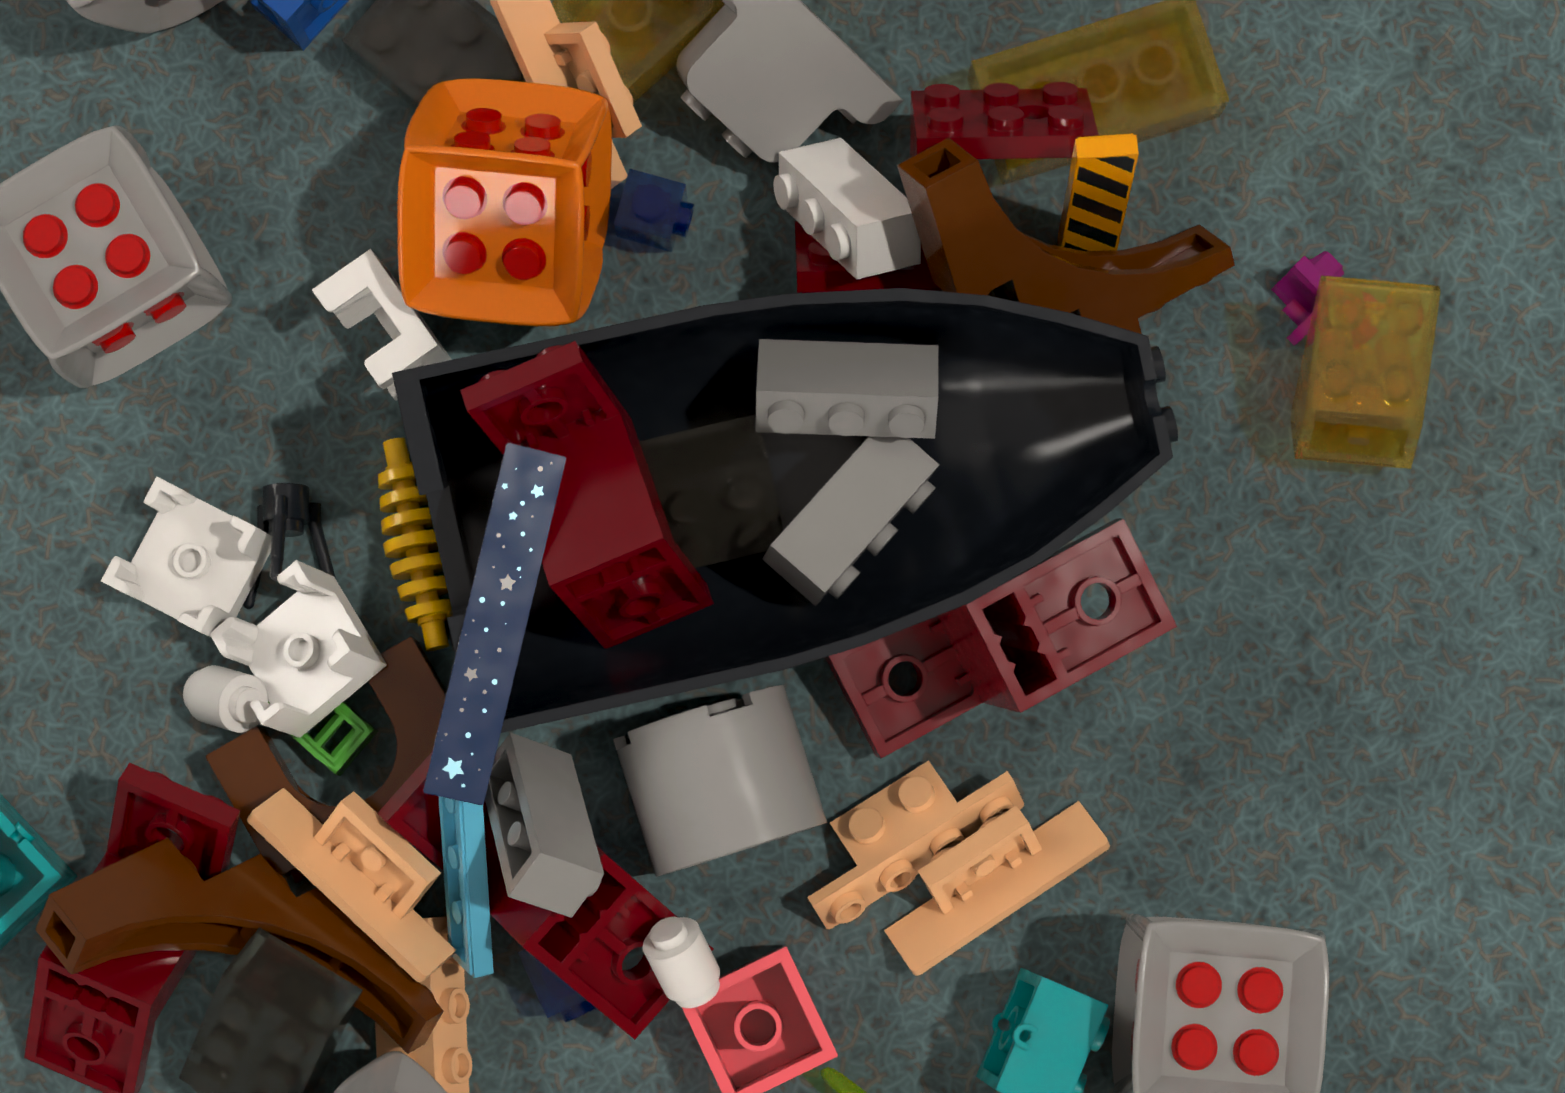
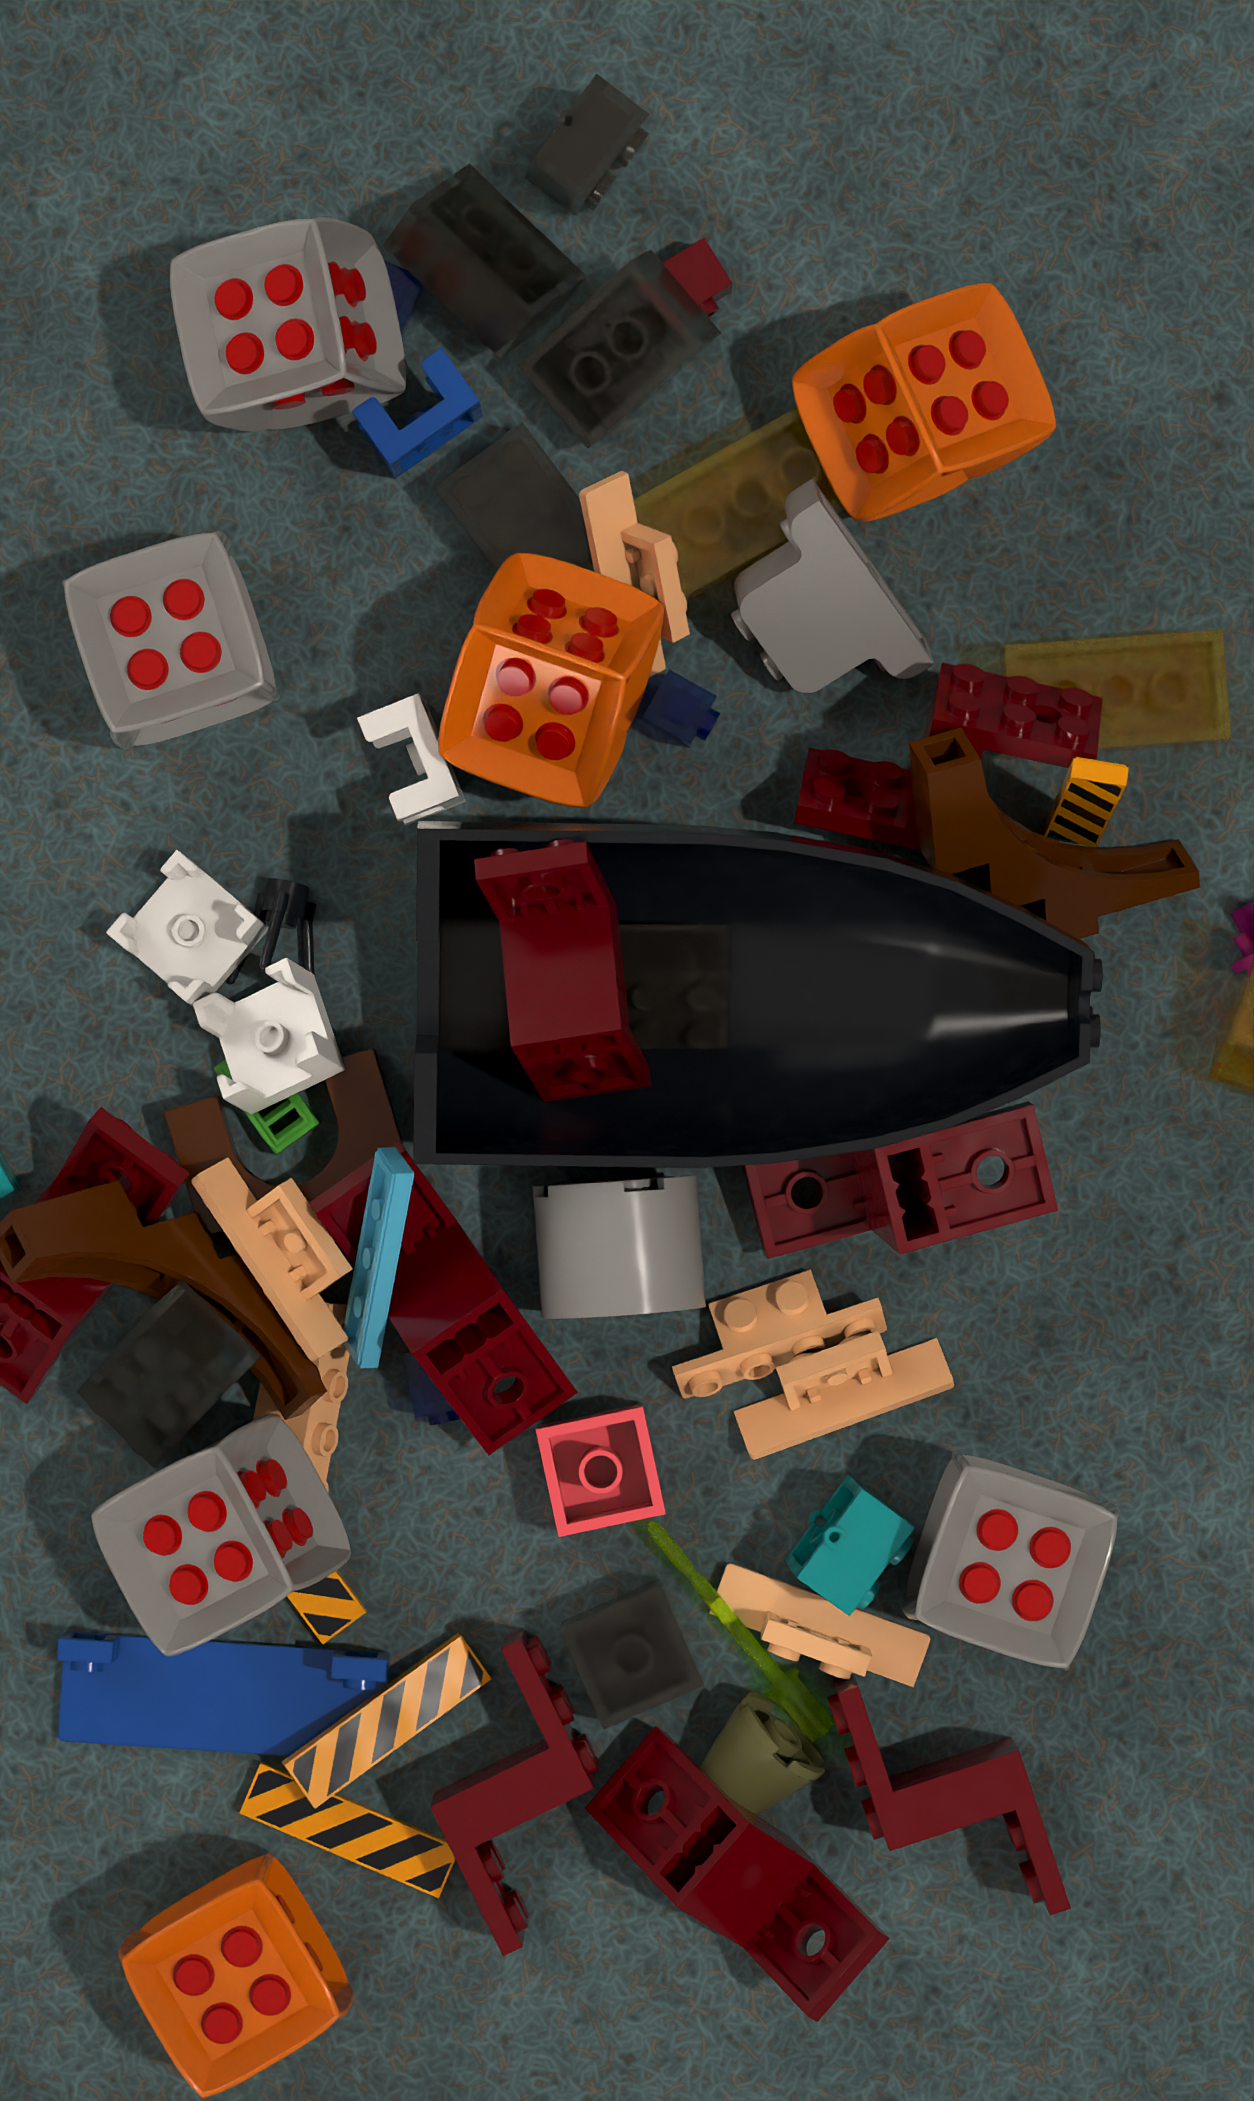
camera: 15 degrees right, 5 degrees up
(224, 698) = (191, 1062): white brick -> none
(414, 544) = (394, 963): yellow piece -> none
(494, 624) = (455, 1068): dark blue sticker -> none
(542, 827) = (452, 1251): light grey brick -> none
(682, 961) = (548, 1398): white brick -> none
(847, 388) = (817, 924): light grey brick -> none
(848, 208) = (857, 755): white brick -> none
(852, 516) = (795, 1036): light grey brick -> none

